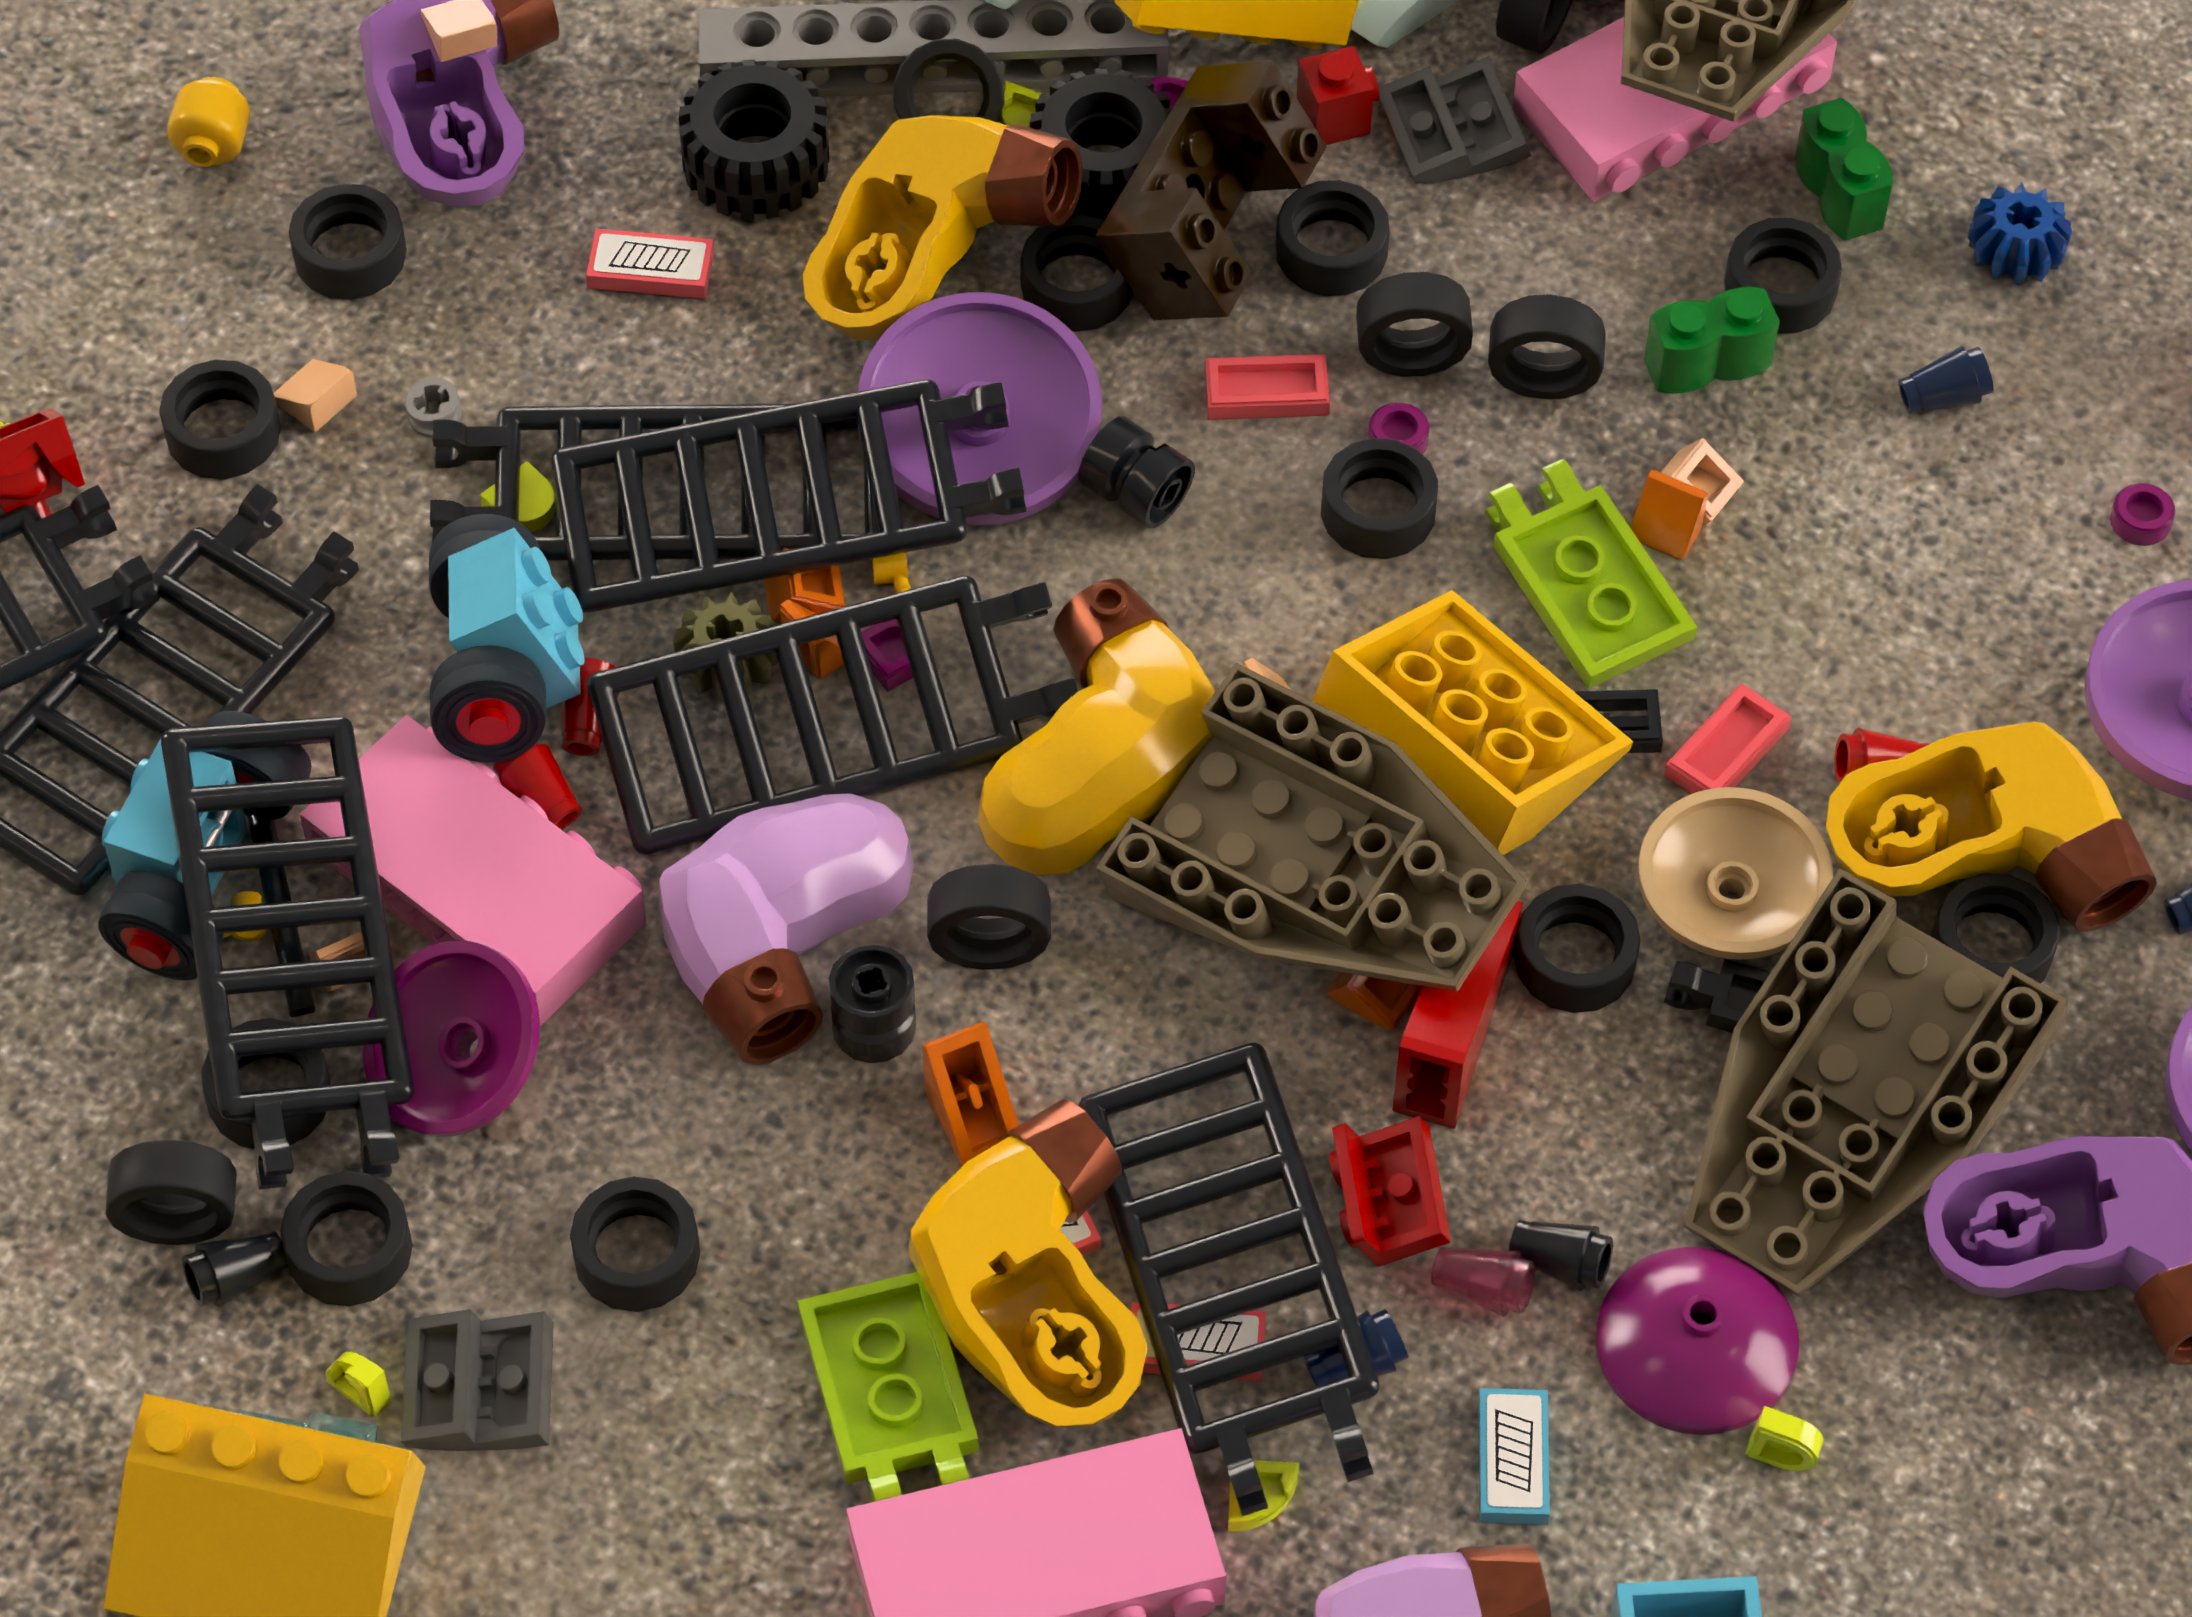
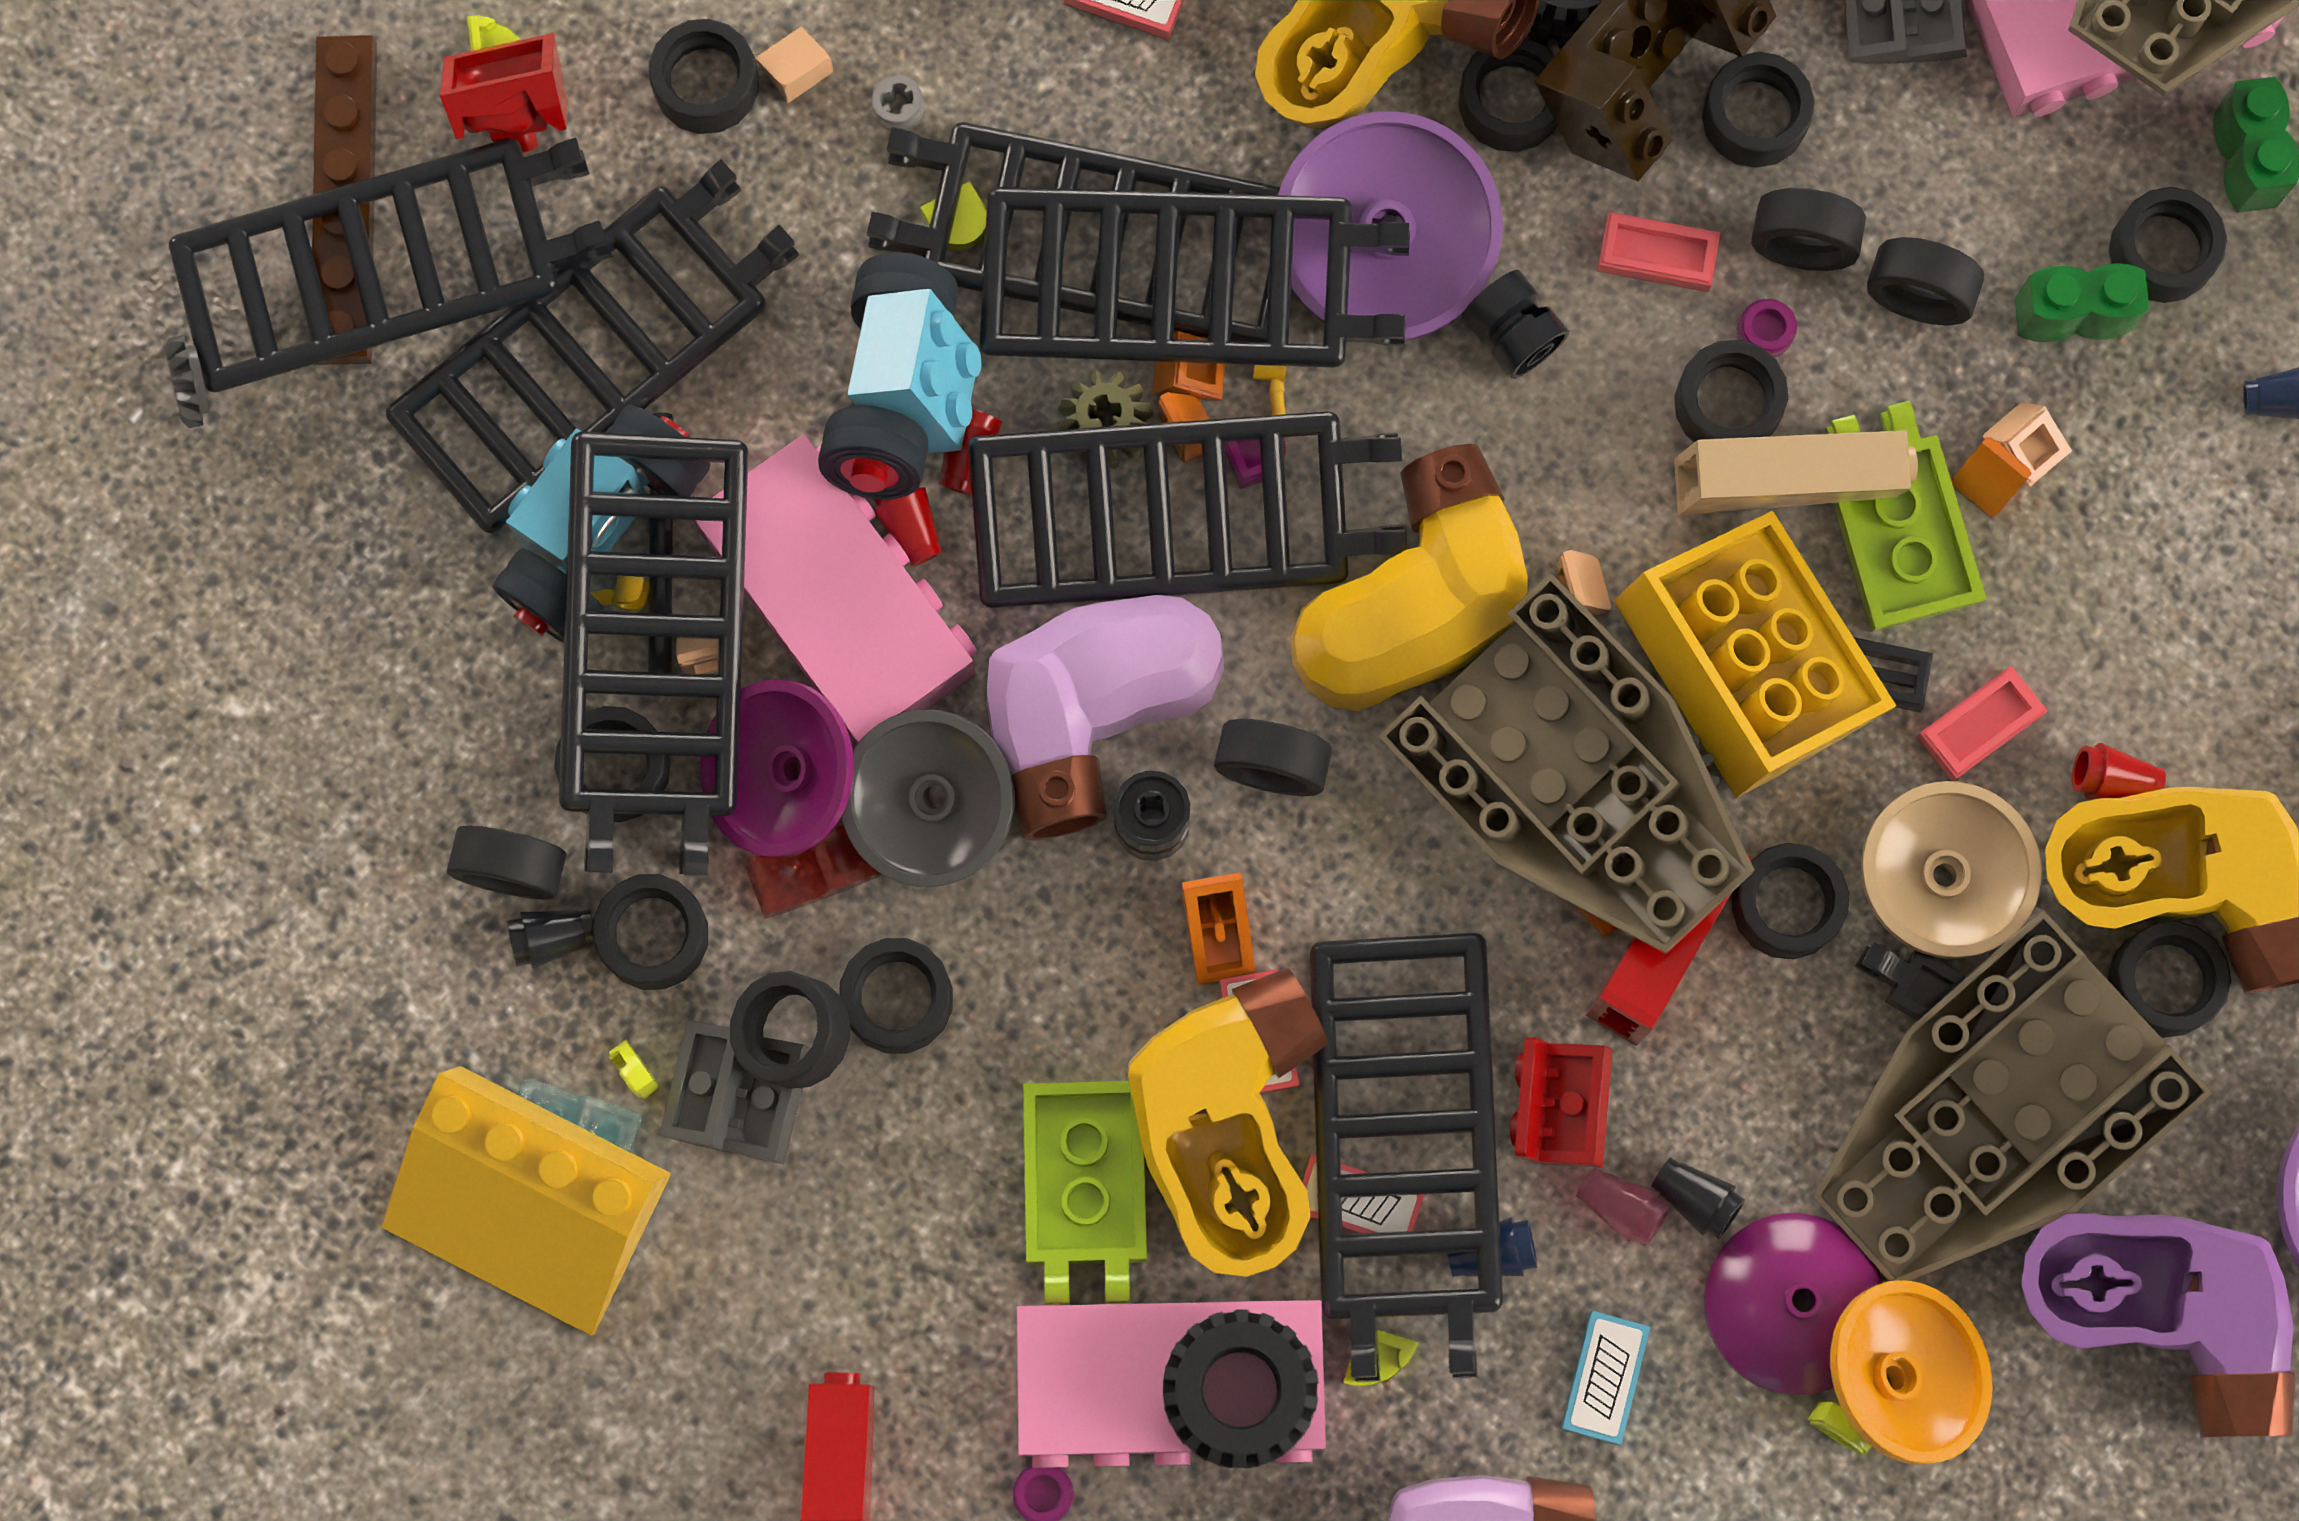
camera: 15 degrees right, 20 degrees up
(495, 1258) = (752, 1012): none -> black tyre
(515, 1144) = (809, 876): none -> clear red slope
(602, 998) = (890, 804): none -> dark grey dish
(1115, 1467) = (1294, 1379): none -> black tyre
(1456, 537) = (1792, 471): none -> tan slope
(1838, 1360) = (1934, 1367): none -> light orange dish

